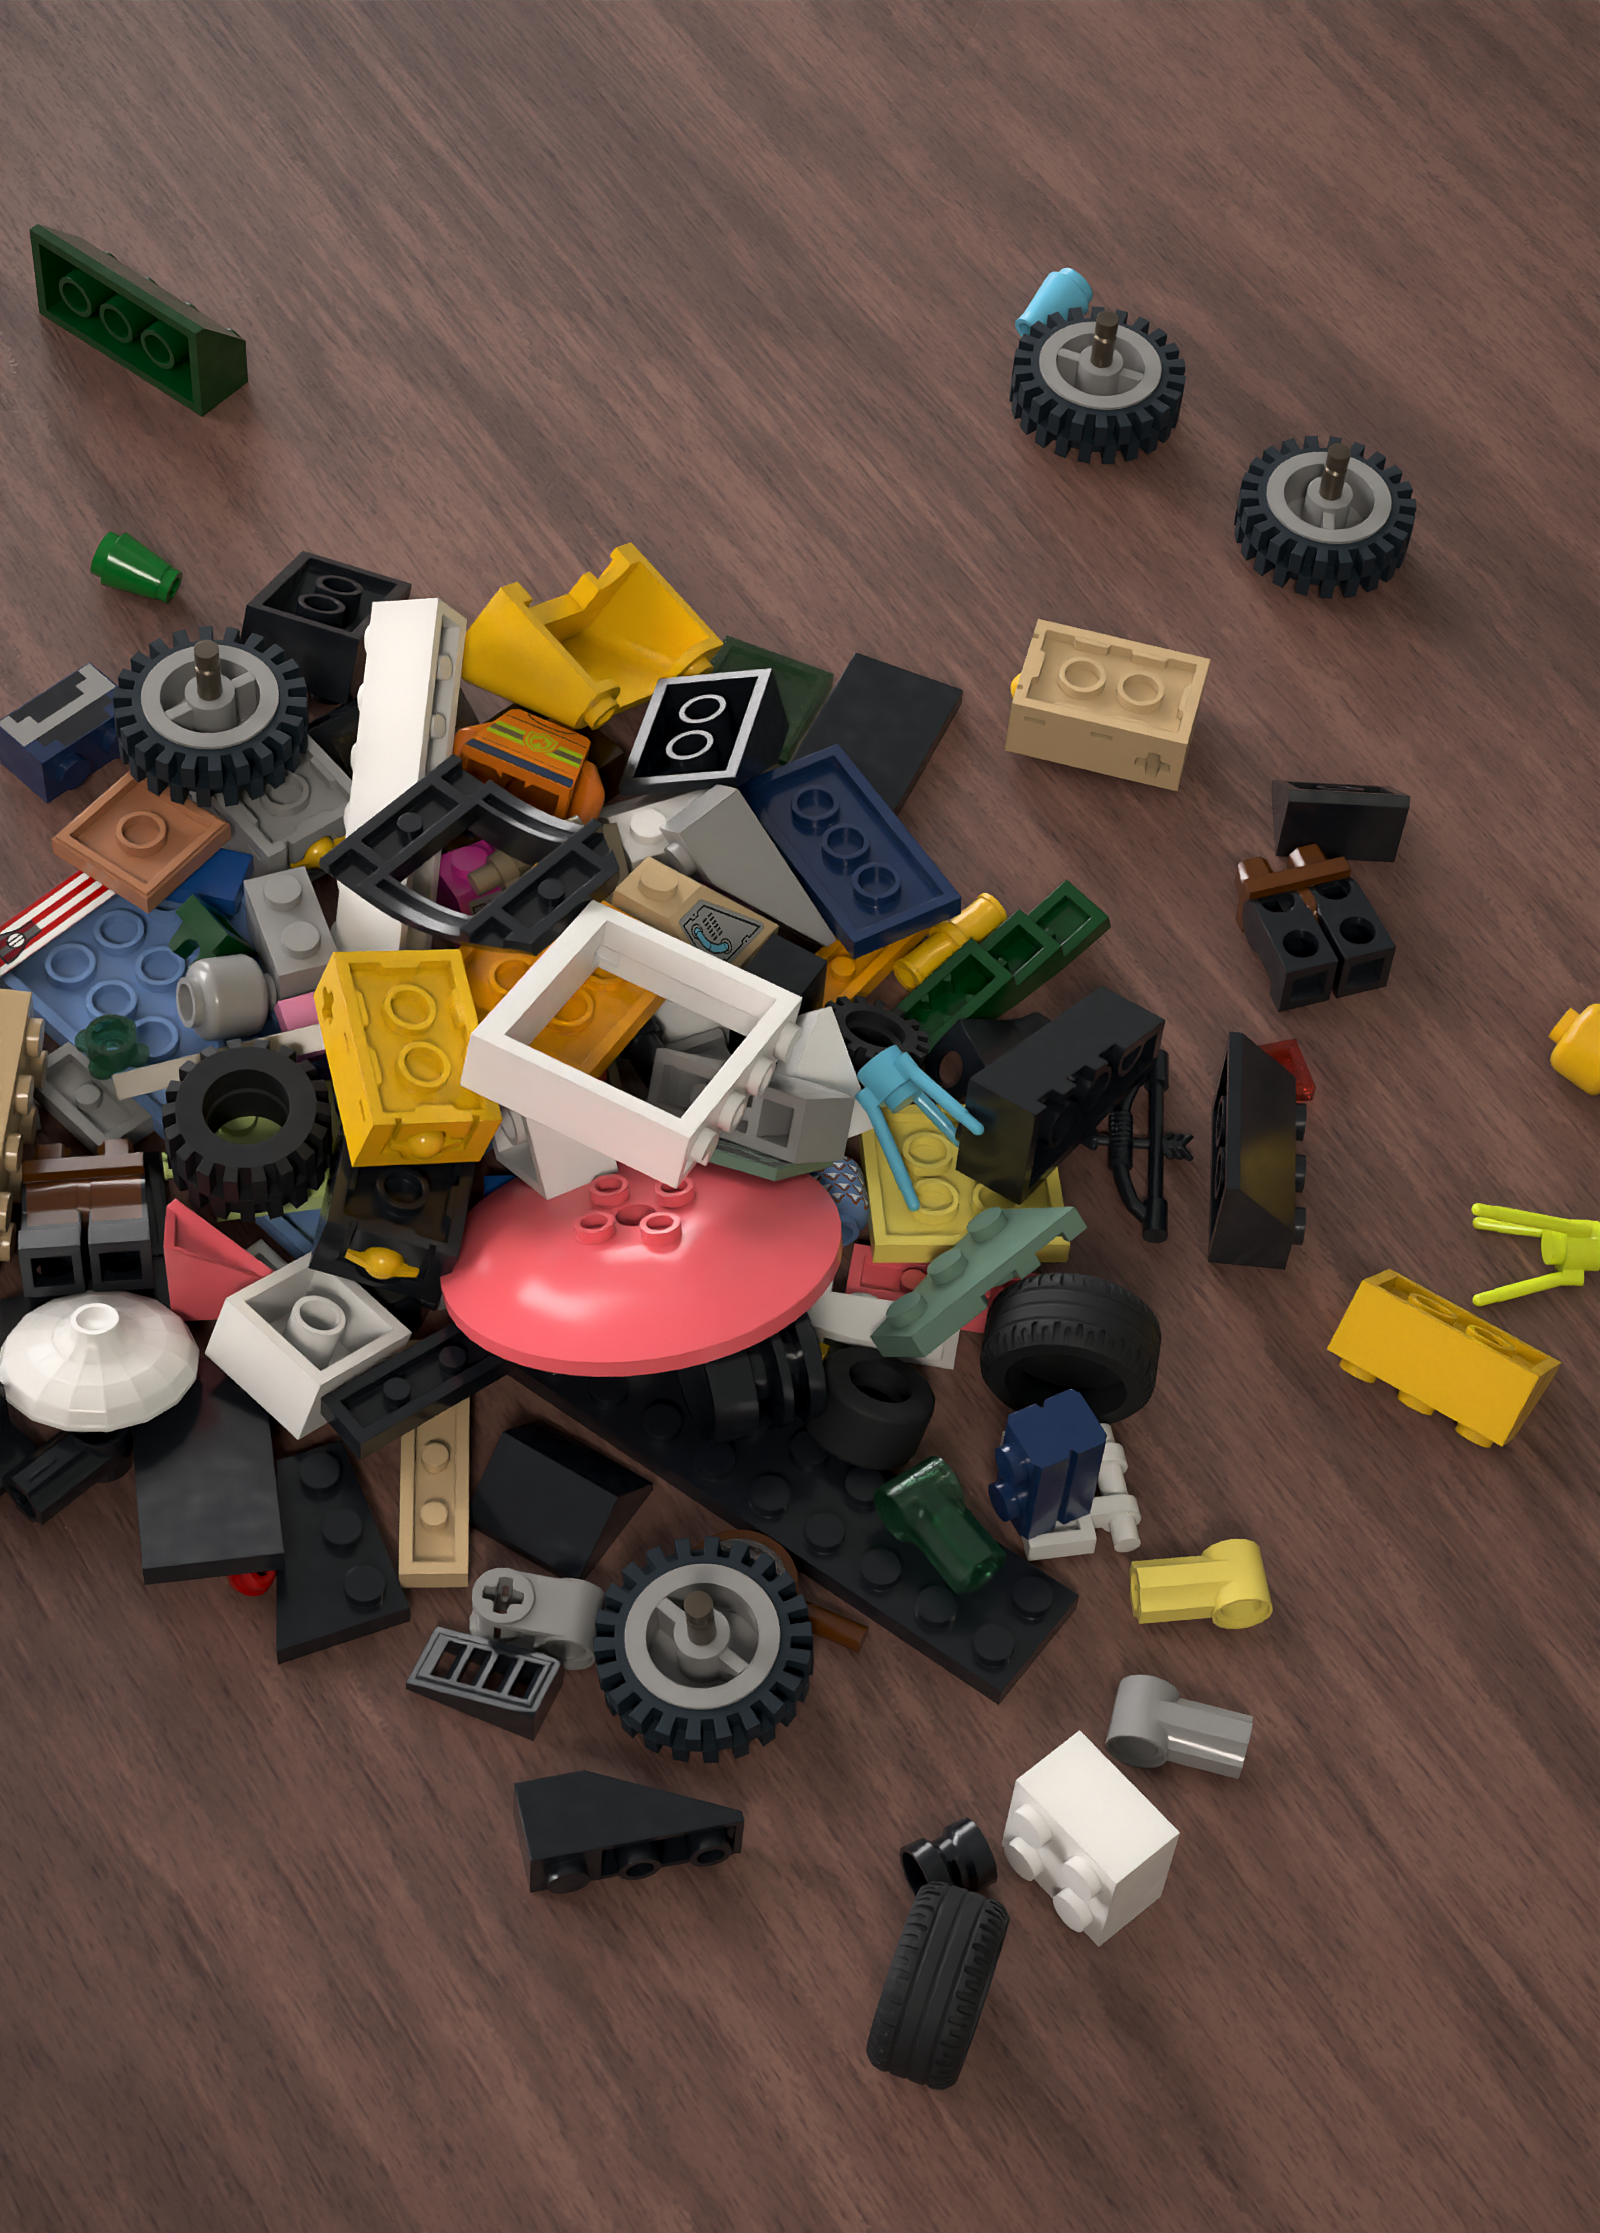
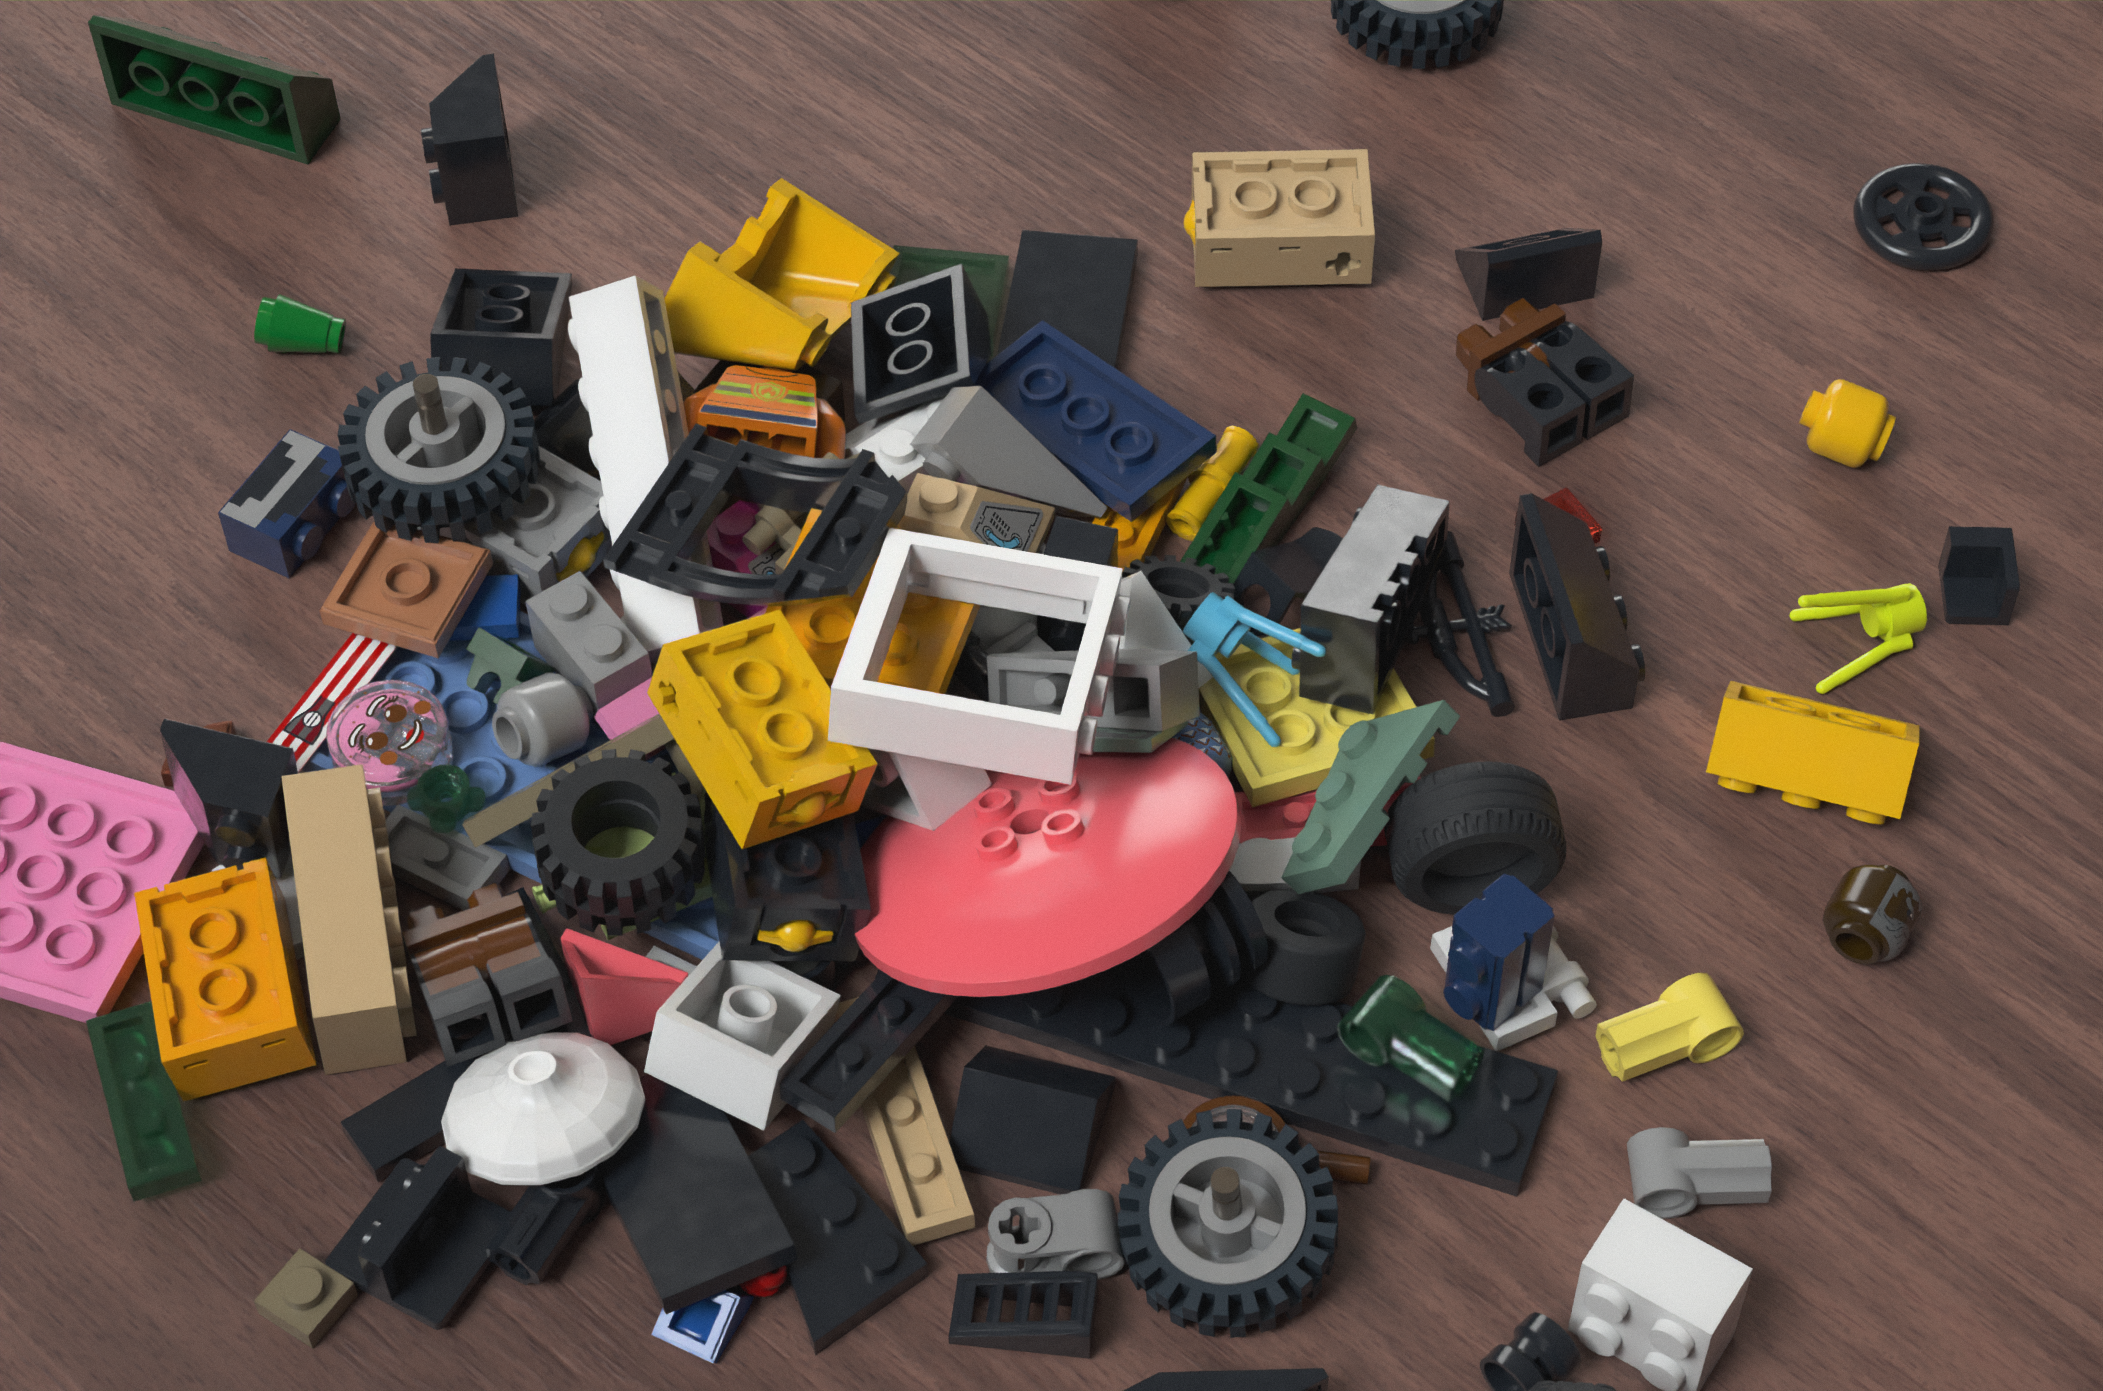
camera: 10 degrees left, 0 degrees up
(77, 975) = (392, 731): none -> clear head
(185, 1606) = (705, 1325): none -> blue slope
(354, 438) = (471, 148): none -> black slope
(1442, 1530) = (1872, 914): none -> dark brown head

